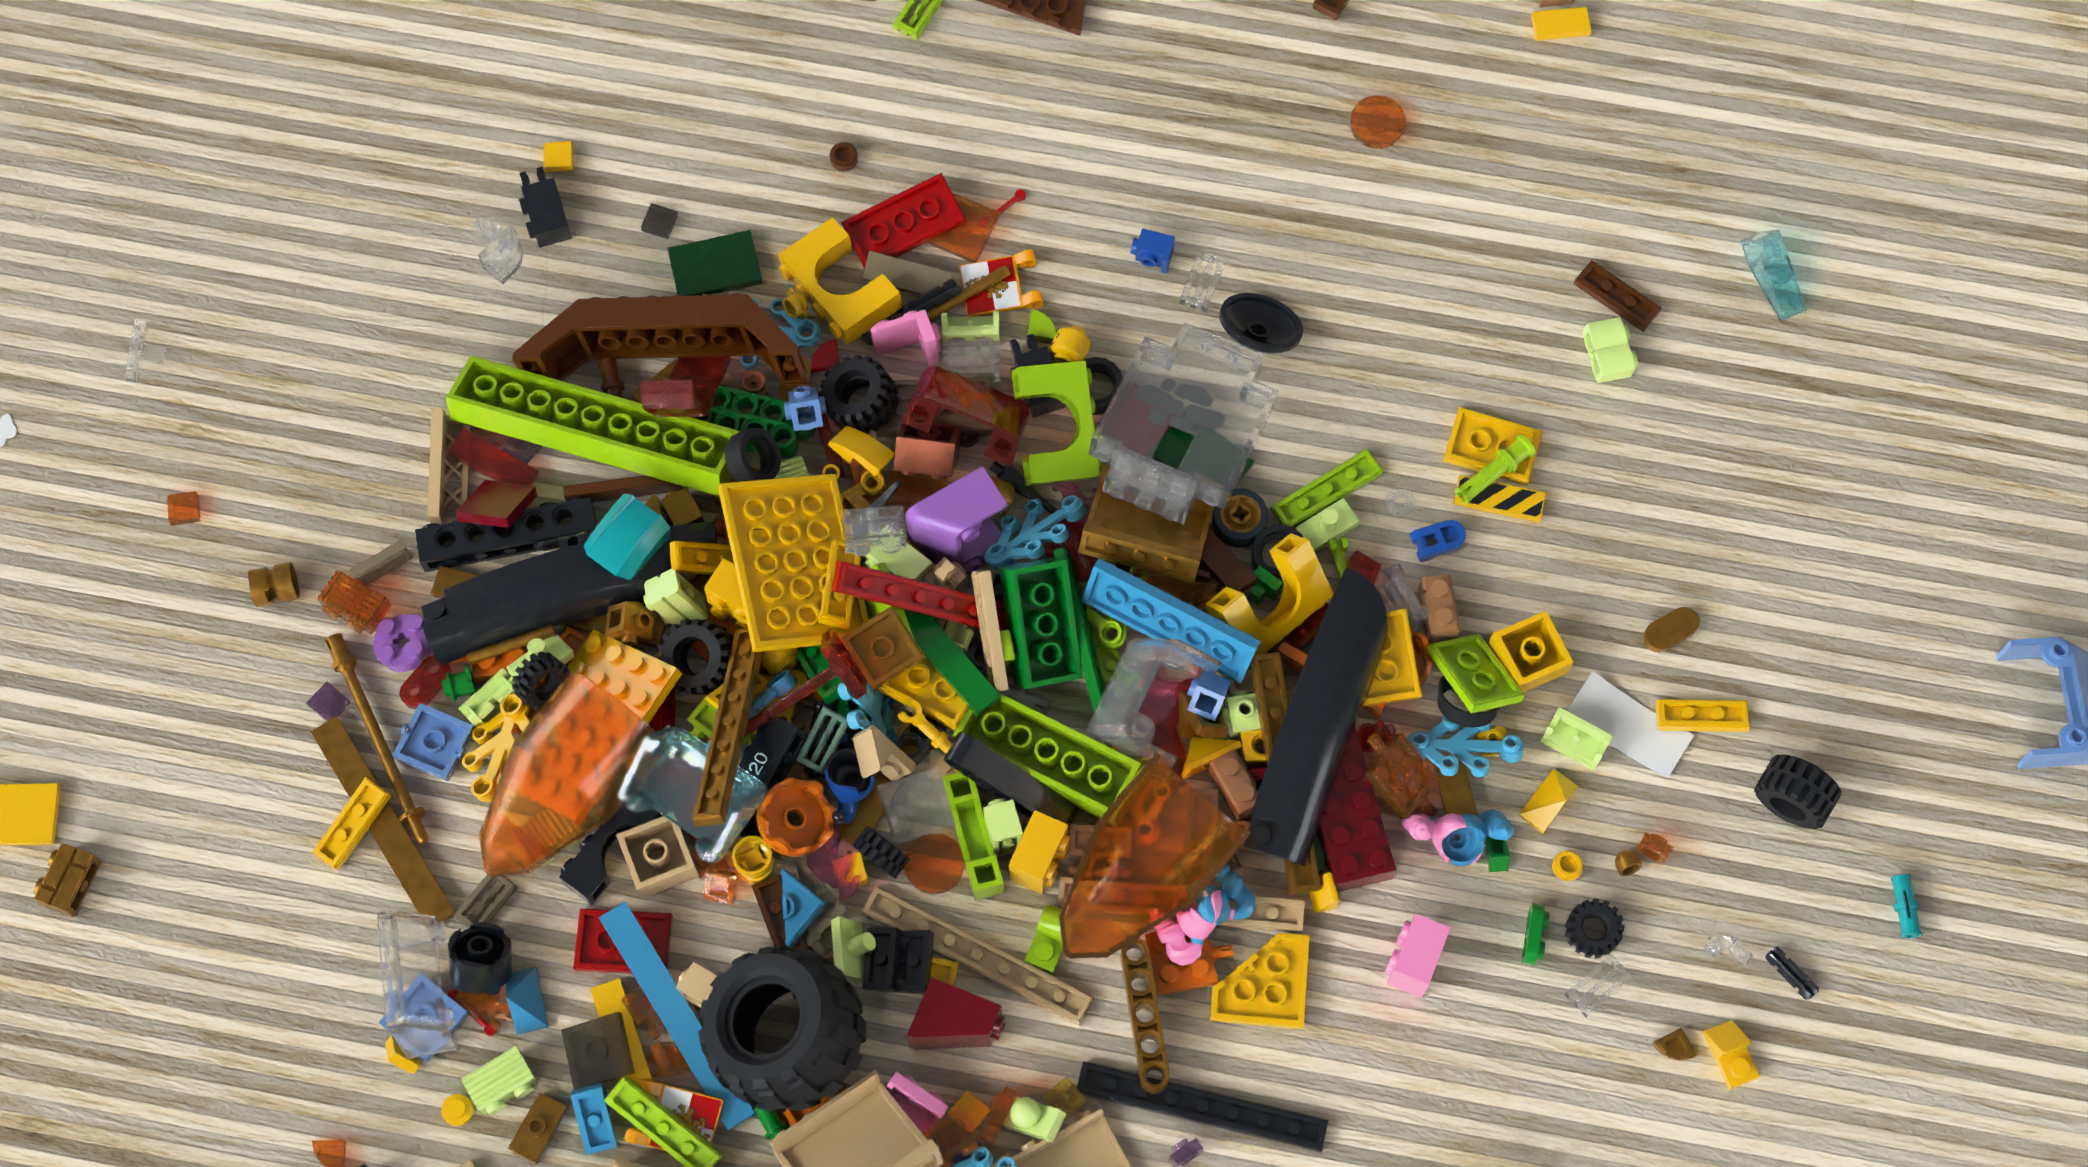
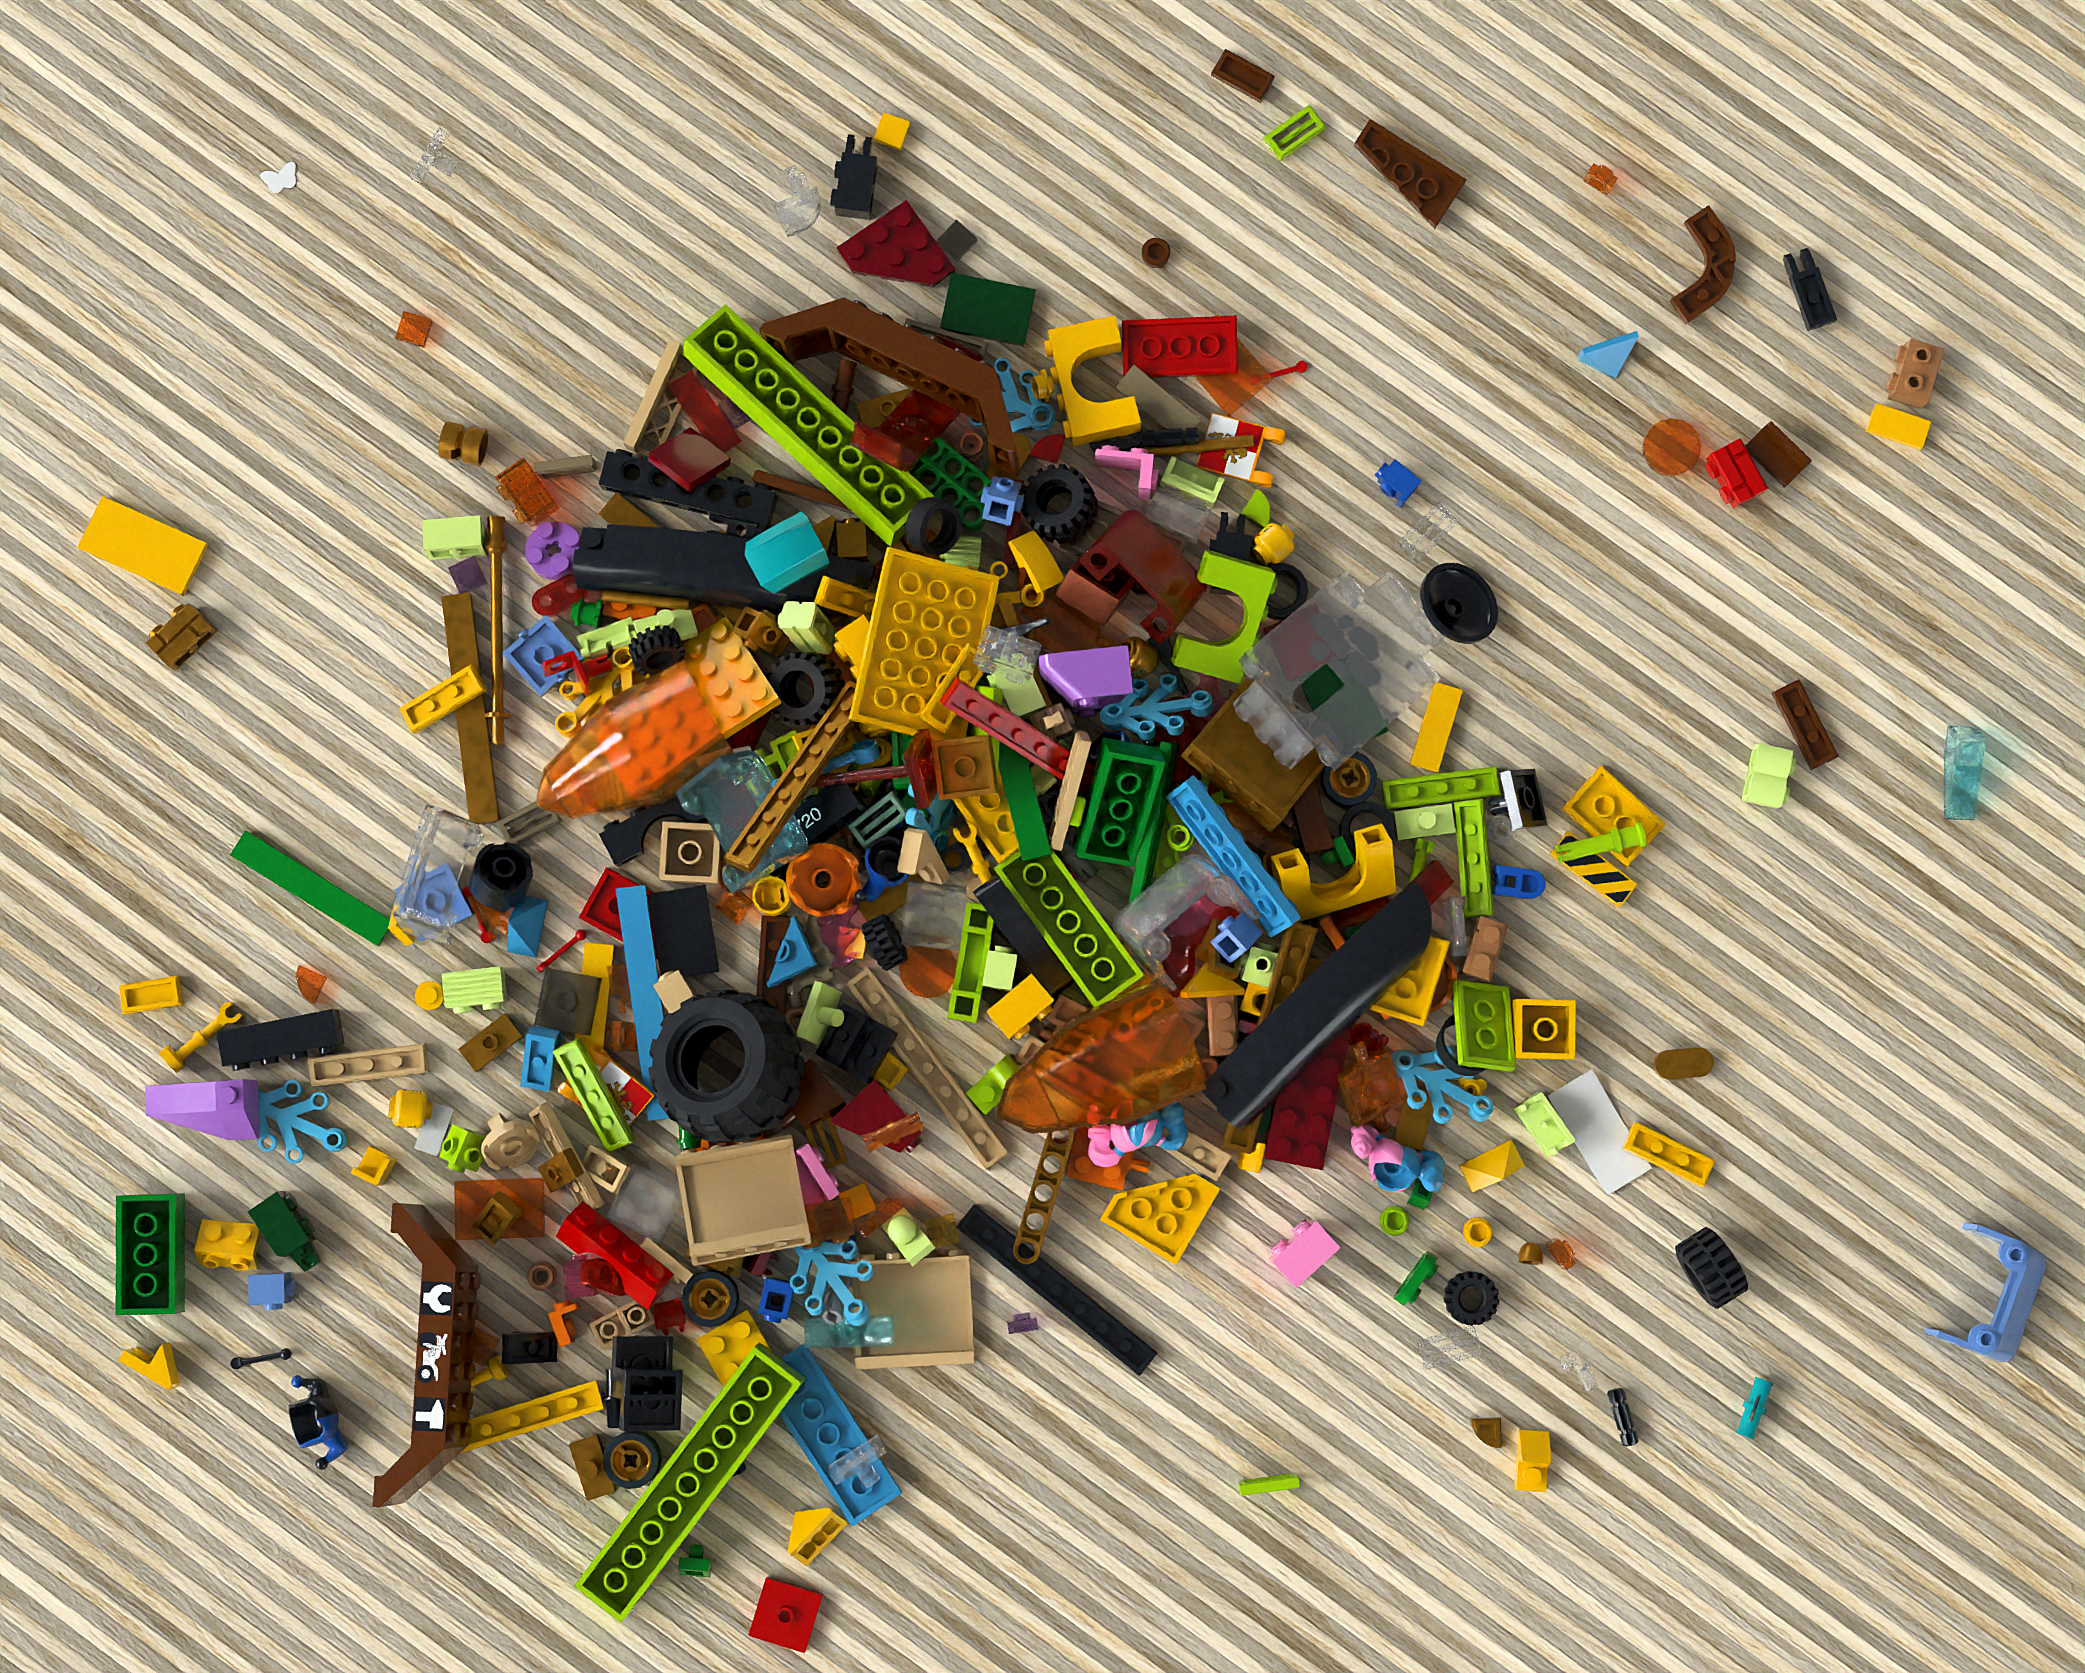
camera: 25 degrees right, 15 degrees up
(295, 1061) = (311, 888): none -> green tile
(300, 673) = (454, 537): none -> yellowish green hinge
(476, 733) = (583, 670): none -> red bracket
(582, 985) = (580, 935): none -> red hinge
(608, 251) = (897, 250): none -> dark red plate
(681, 931) = (683, 931): none -> black tile
(801, 713) = (871, 787): none -> lime tile
(884, 1033) = (816, 1100): none -> reddish brown torso
(890, 1050) = (832, 1162): none -> pearl gold tile
(973, 1015) = (893, 1131): none -> clear orange pin
(1283, 70) = (1609, 355): none -> dark azure slope
(1295, 440) = (1436, 727): none -> yellow tile
(1387, 532) = (1474, 858): none -> lime tile
(1404, 464) = (1521, 799): none -> black tile
(1444, 117) = (1735, 473): none -> red brick
(1471, 86) = (1777, 454): none -> reddish brown panel
(1485, 891) = (1394, 1220): none -> lime plate

